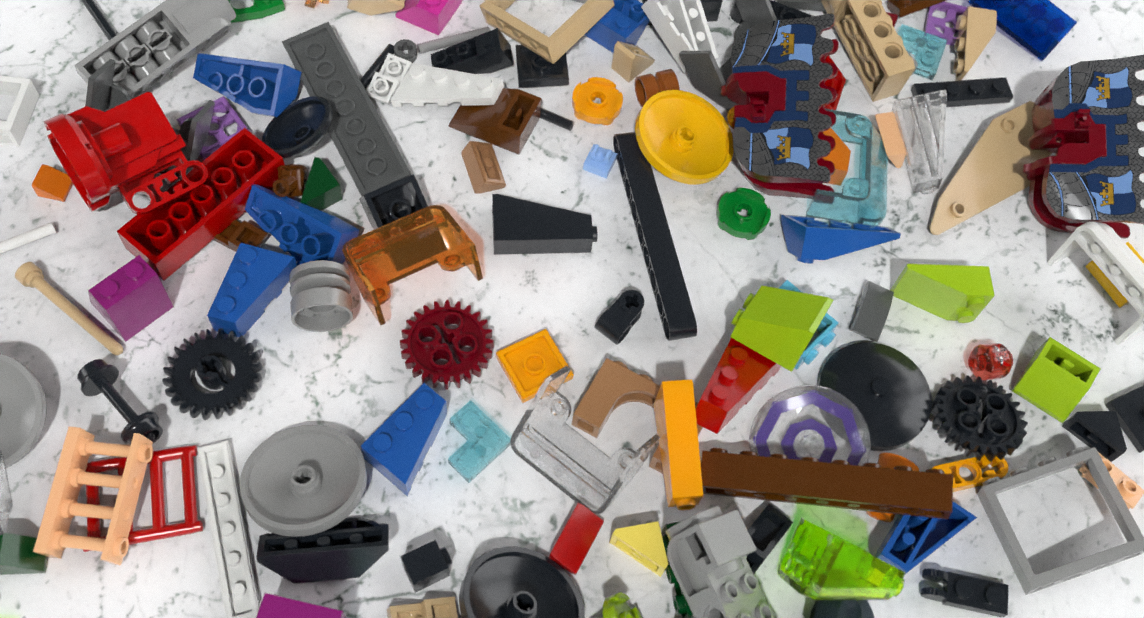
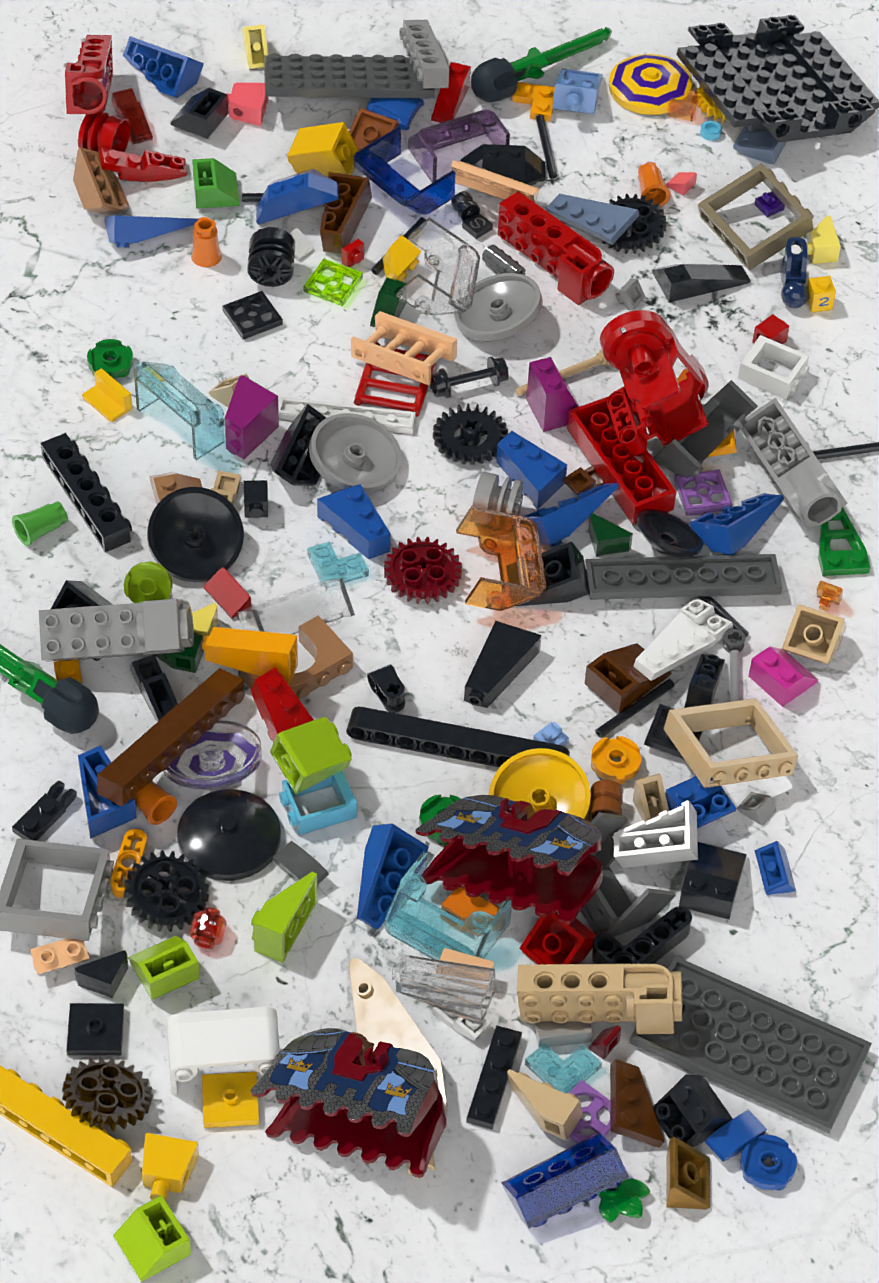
camera: 120 degrees right, 10 degrees down
(290, 180) = (617, 512): reddish brown axle -> none
(482, 167) = (579, 654): medium nougat slope -> none
(531, 362) = (377, 618): light orange plate -> none
(835, 569) = (105, 701): clear neon green windscreen -> none

